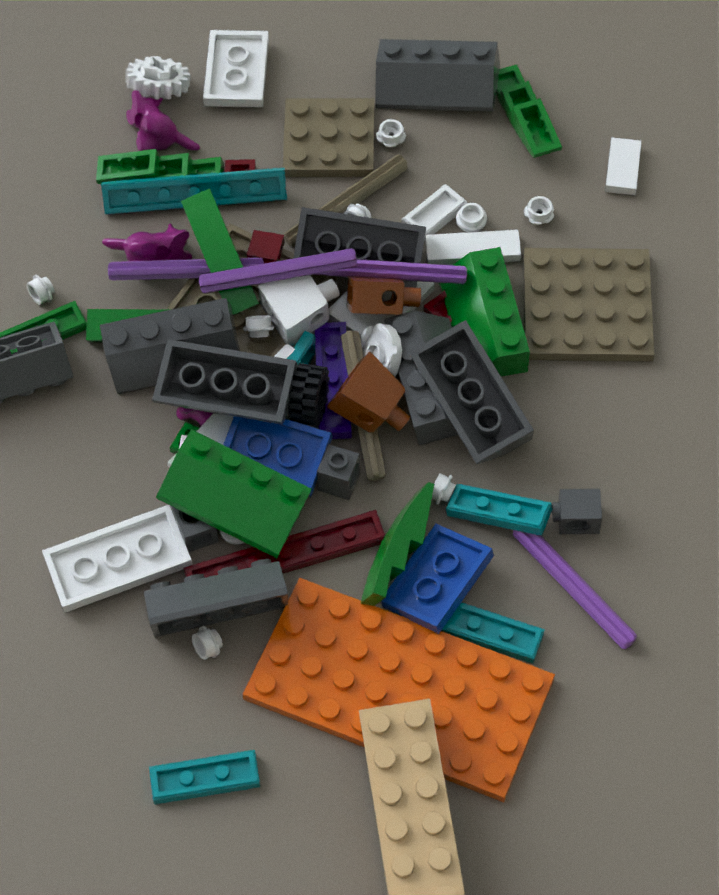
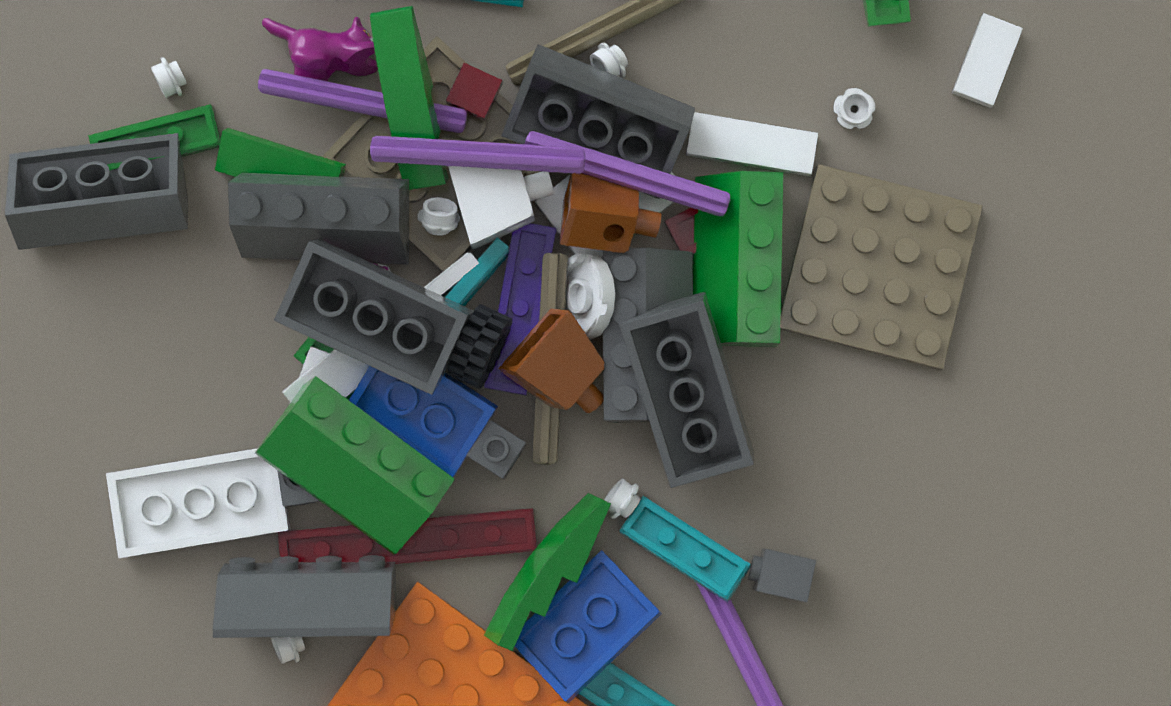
camera: 10 degrees right, 25 degrees up
(436, 210) = (715, 74): white tile -> none
(471, 217) = (761, 98): white plate -> none

